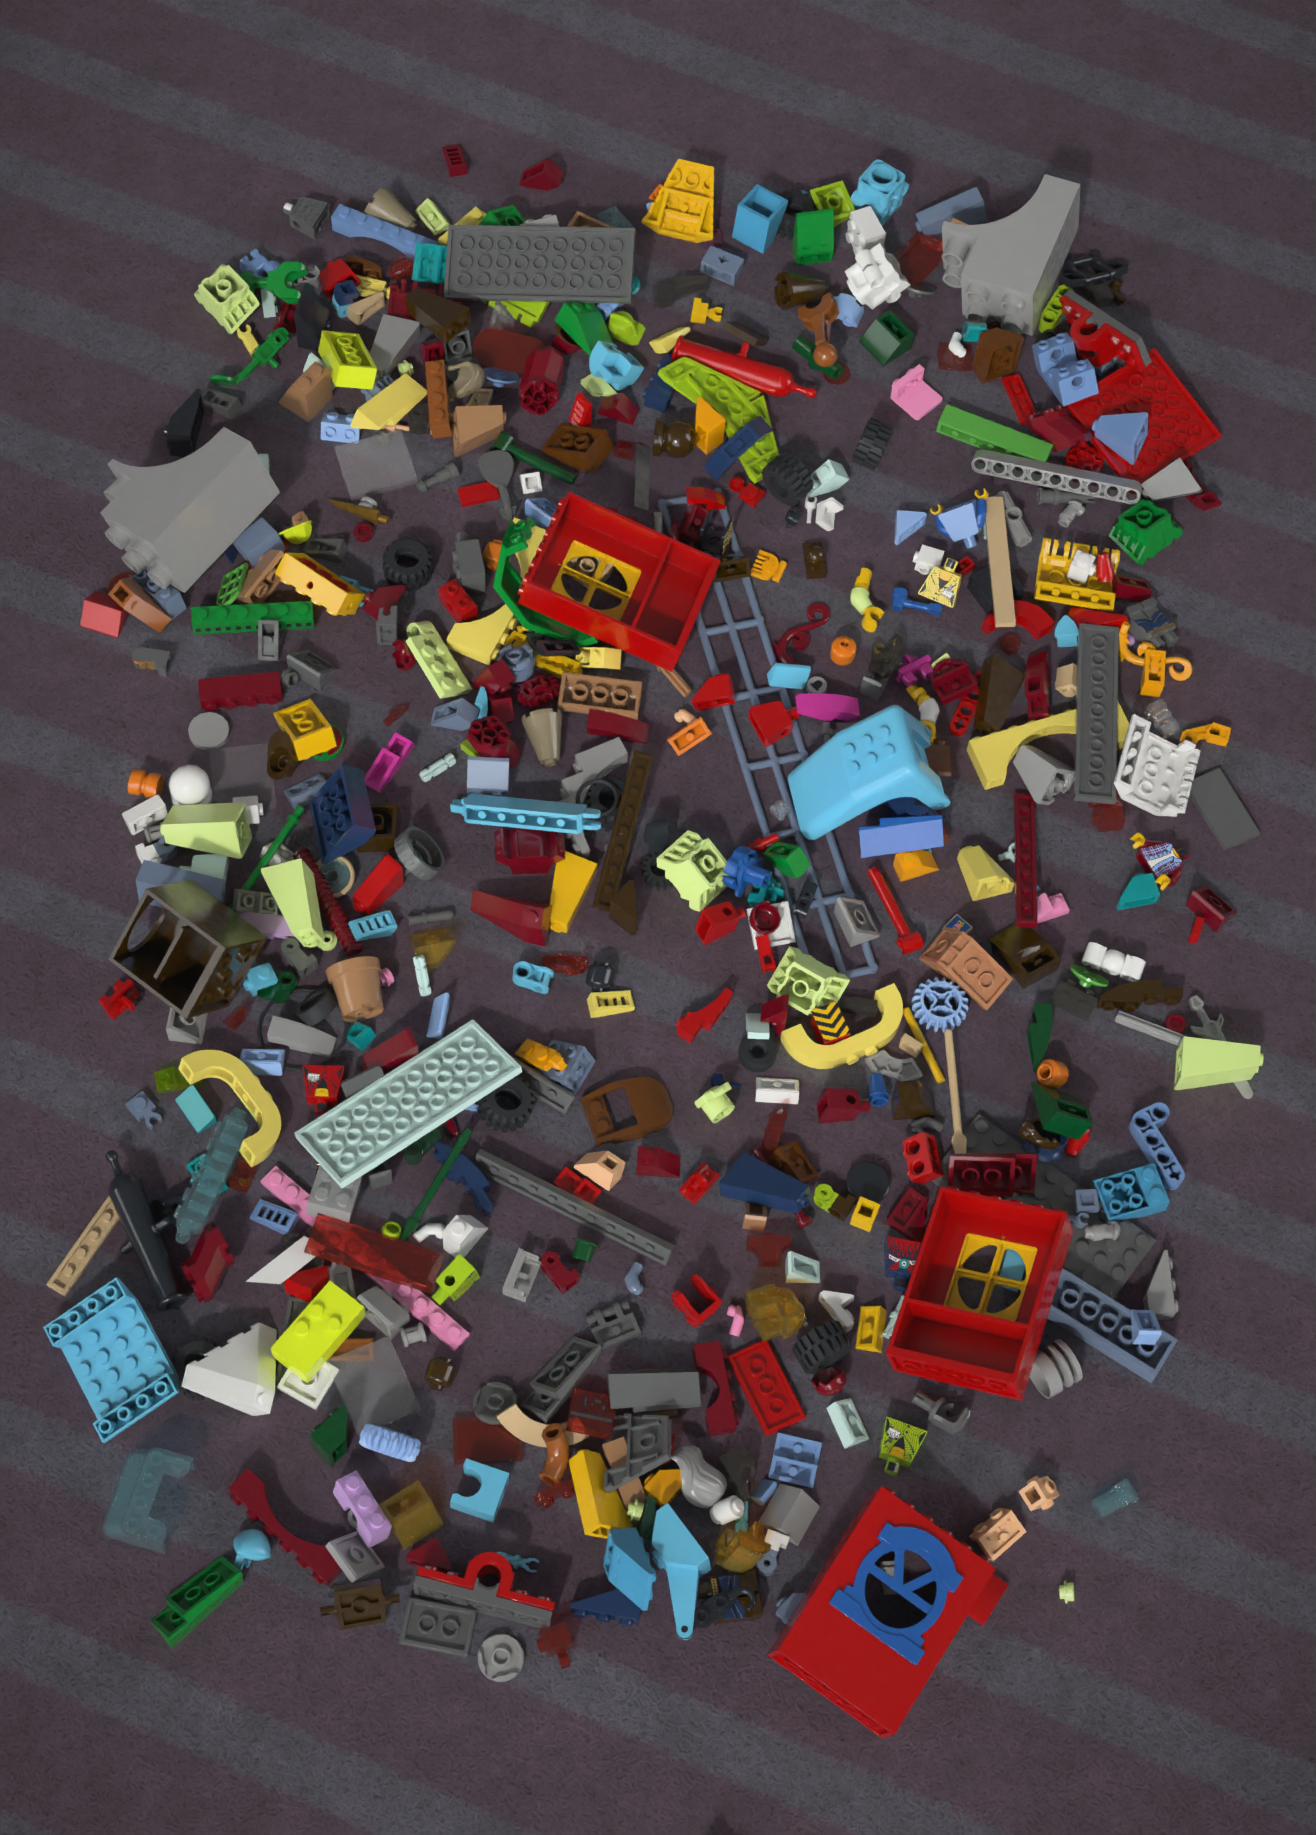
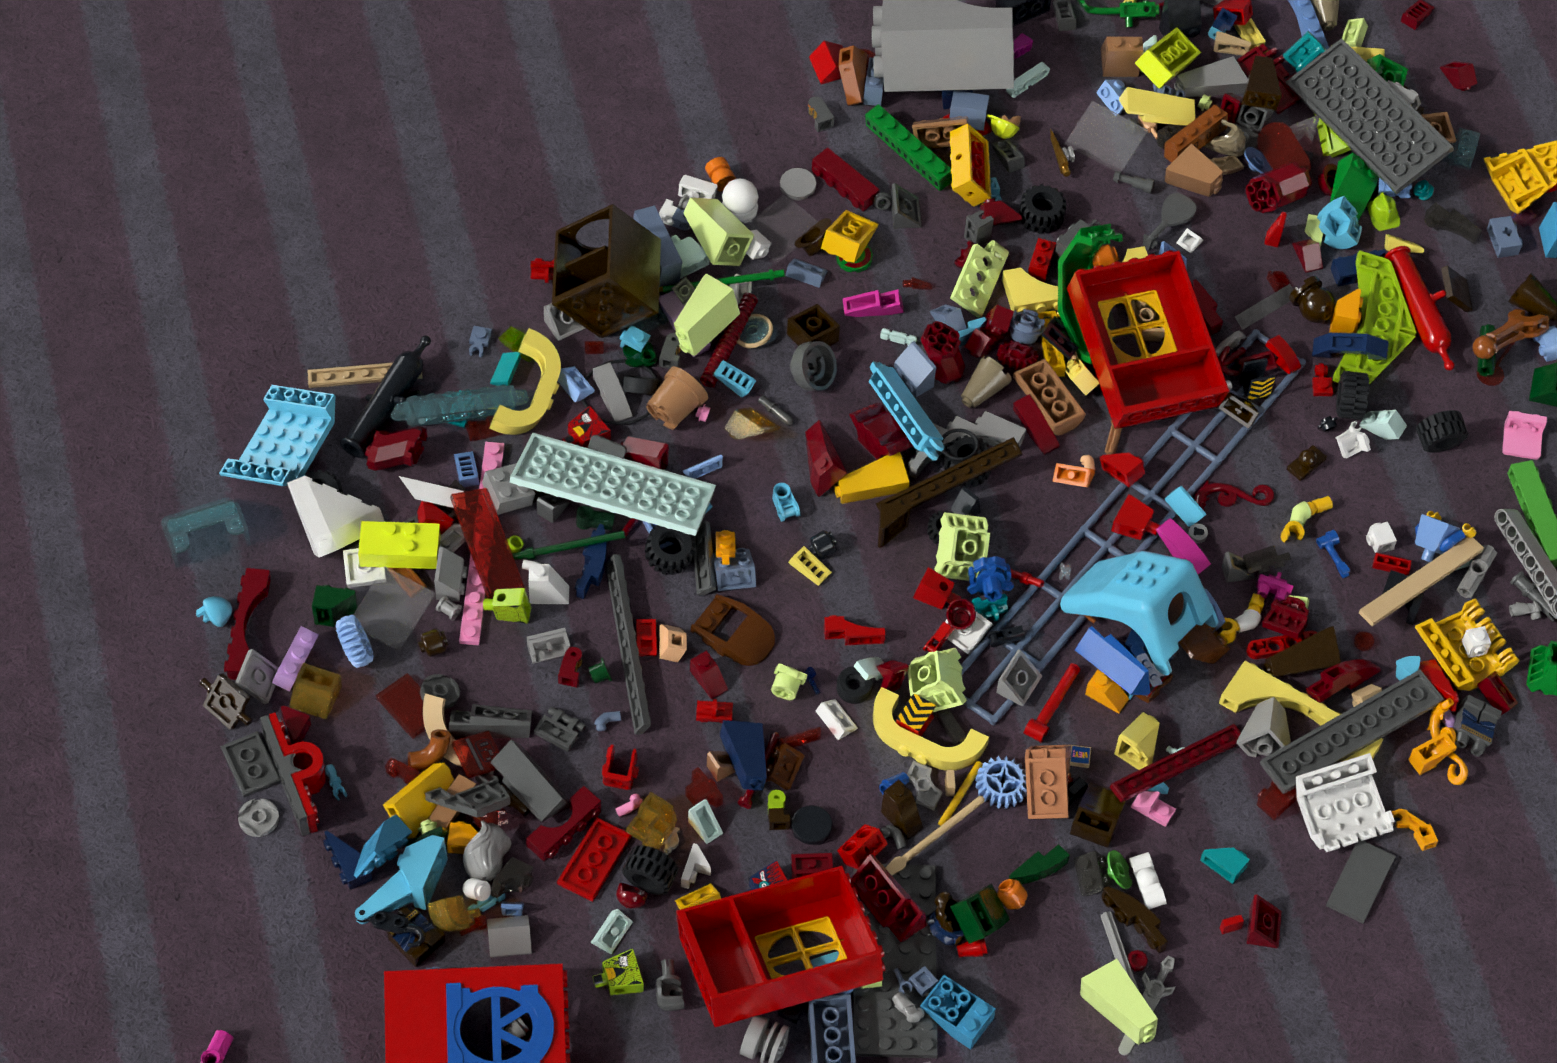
camera: 55 degrees right, 5 degrees down
(197, 1600) = (156, 607): green slope -> none
(235, 591) = (921, 117): bright green window -> none
(268, 640) = (901, 166): dark grey slope -> none
(327, 946) = (700, 364): yellowish green plate -> none
(342, 813) = (802, 298): dark blue slope -> none
(360, 1035) = (646, 429): teal slope -> none
(363, 532) = (1045, 168): dark red tile -> none
(364, 267) = (1261, 16): reddish brown slope -> none
(378, 886) = (767, 361): red slope -> none
(401, 269) = (1284, 41): clear red head -> none
(422, 975) = (722, 432): light aqua axle -> none
(477, 494) = (1145, 214): red tile -> none
(489, 1497) = (369, 730): medium azure piece -> none
(506, 443) = (1204, 203): dark green piece -> none
(556, 1641) = (294, 842): clear red brick -> none
(566, 963) = (814, 516): clear red arm -> none
(579, 446) = (1249, 250): reddish brown slope -> none
(701, 311) = (1447, 250): yellow piece -> none
(769, 567) = (1271, 439): light orange piece -> none
(769, 1563) = (468, 939): leg -> none
(787, 859) = (1027, 602): green slope -> none
(795, 1460) = (553, 913): medium blue slope -> none
(840, 1105) = (857, 765): dark red torso -> none
(843, 650) = (1243, 529): orange head -> none
(865, 1214) = (782, 835): yellow brick -> none
(907, 523) = (1398, 503): light blue slope -> none
(943, 584) = (1366, 558): torso -> none
(1027, 616) = (1398, 633): red arch -> none
(1104, 568) = (1490, 658): red cone -> none
(1160, 859) = (1268, 860): torso -> none
(1160, 1148) = (1015, 1010): medium blue beam -> none
(1163, 721) = (1398, 786): clear leg -> none

